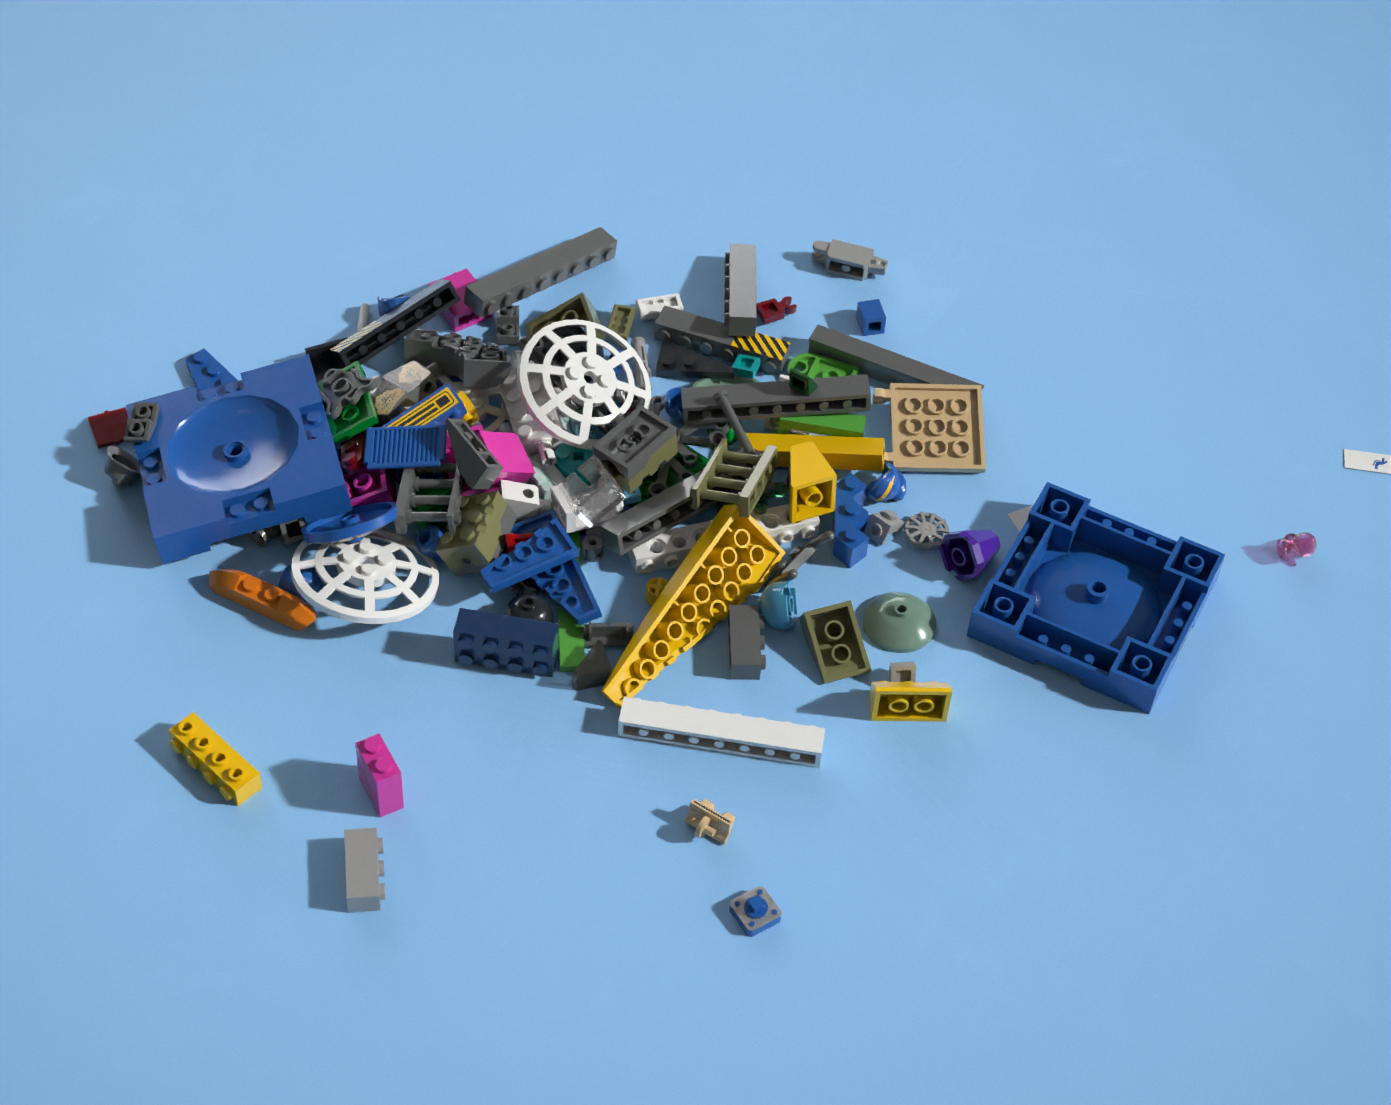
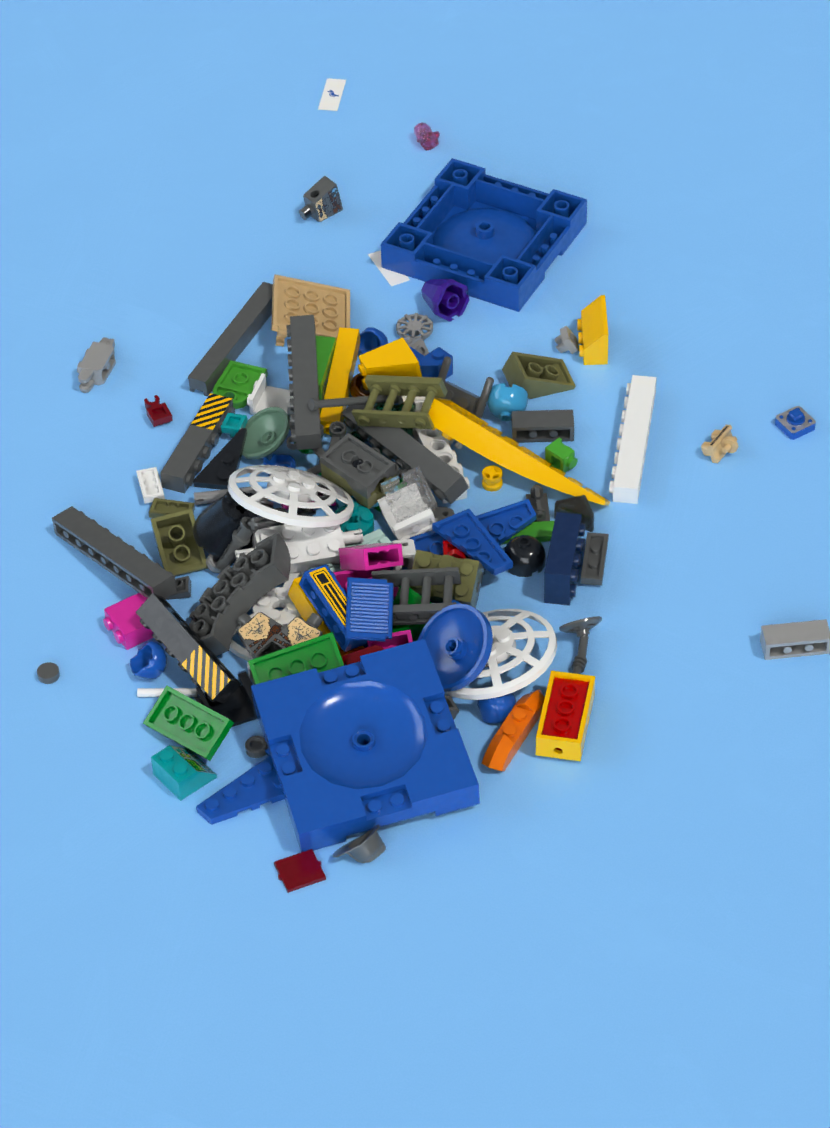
camera: 85 degrees left, 5 degrees down
(142, 423) = (334, 811): dark grey slope -> none
(215, 759) = (696, 742): yellow brick -> none
(250, 335) = (181, 771): none -> teal slope
(267, 636) = (565, 715): none -> brick
(302, 333) = (188, 723): none -> green plate
(344, 389) = (287, 659): dark grey tile -> none
(379, 775) = (712, 623): dark pink brick -> none
(399, 242) = (48, 673): none -> dark grey tile
(400, 658) = (581, 628): none -> dark grey dish
(472, 457) = (393, 555): dark grey slope -> none
(518, 682) = (594, 558): none -> dark grey plate
(691, 656) = (560, 455): none -> bright green brick
(740, 290) = (143, 422): brick -> none
(801, 382) = (303, 352): dark green slope -> none
(870, 317) = (170, 351): blue brick -> none
(897, 630) = (503, 340): sand green dish -> none
(1143, 441) = (321, 200): none -> dark grey torso

